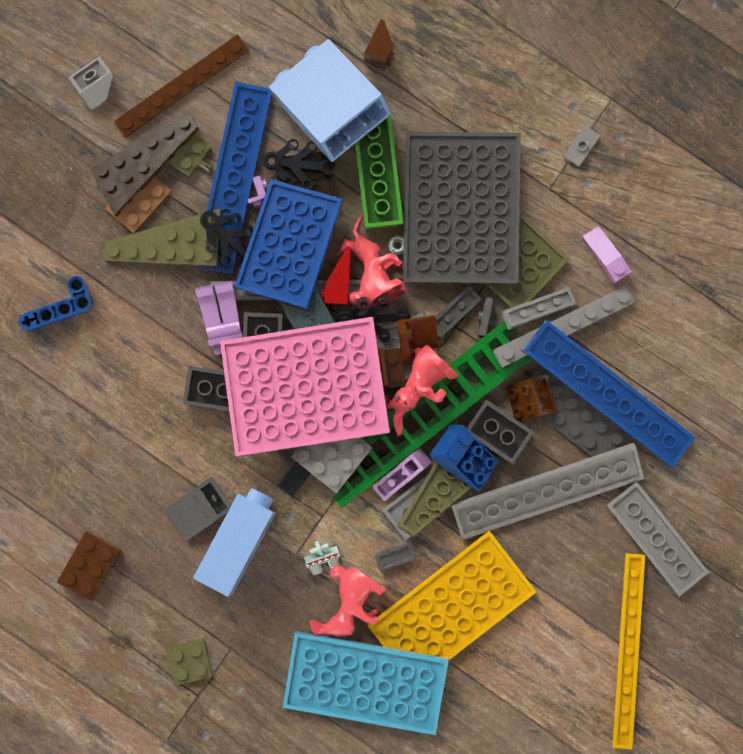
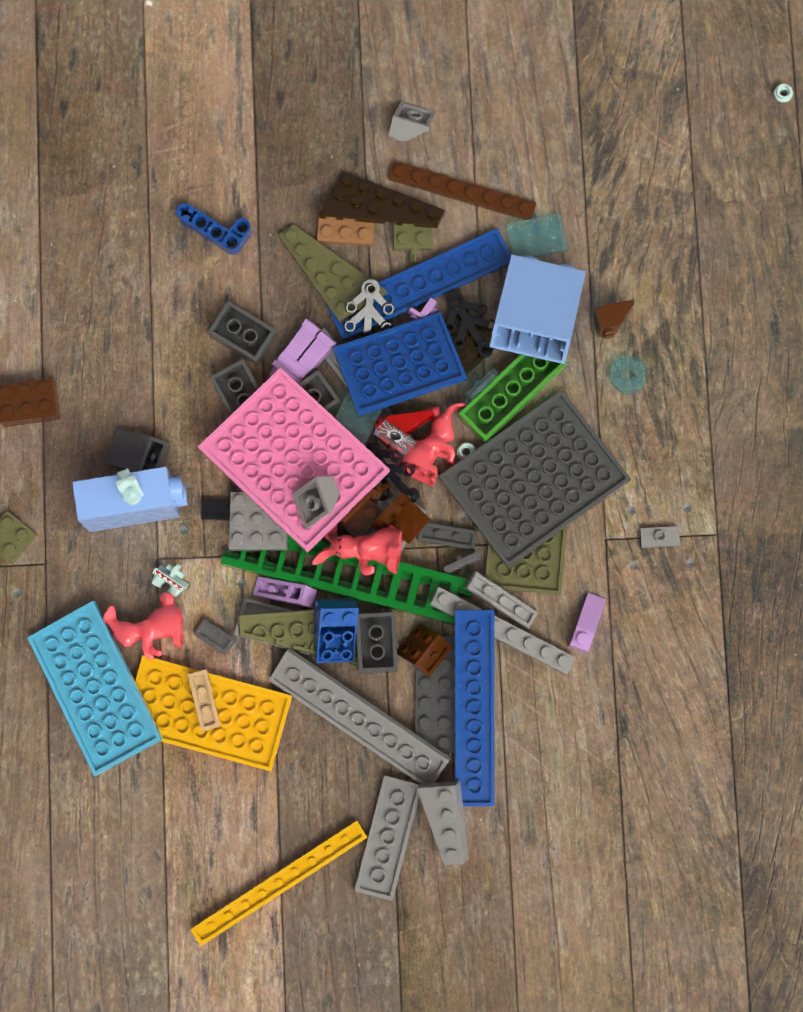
camera: 55 degrees right, 5 degrees down
(165, 350) = (242, 333): none -> dark grey brick
(236, 536) = (129, 487): none -> light aqua hips
(266, 55) = (538, 236): none -> clear light blue plate
(348, 293) = (395, 437): none -> clear tile
(355, 193) = (480, 385): none -> clear light blue plate
(355, 394) = (316, 500): none -> light grey slope
(381, 339) = (378, 491): none -> reddish brown bar
(434, 80) = (620, 382): none -> clear light blue plate
(441, 603) = (204, 700): none -> tan plate
(678, 482) = (446, 818): none -> light grey wedge

